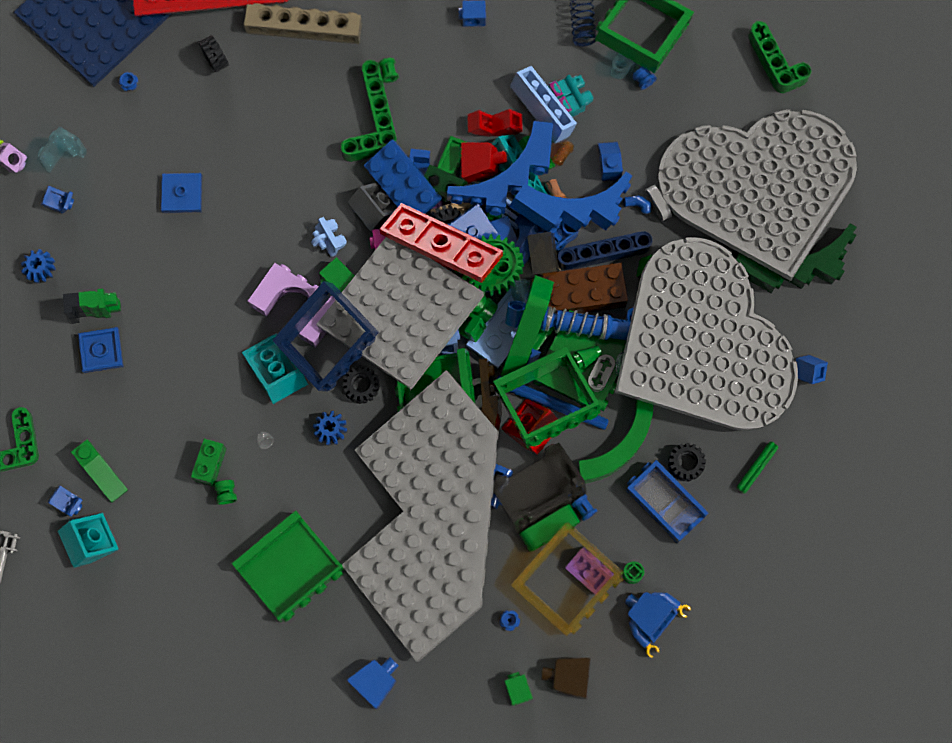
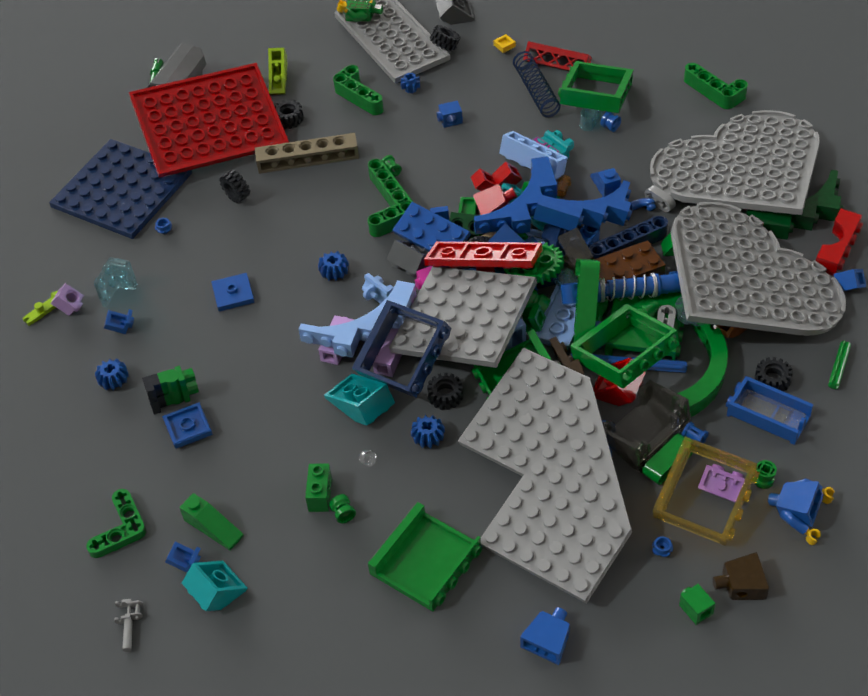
camera: 10 degrees left, 25 degrees down
(277, 299) = (346, 336): none -> light blue arch
(286, 187) = (333, 265): none -> blue gear
(835, 299) = (845, 228): none -> red arch

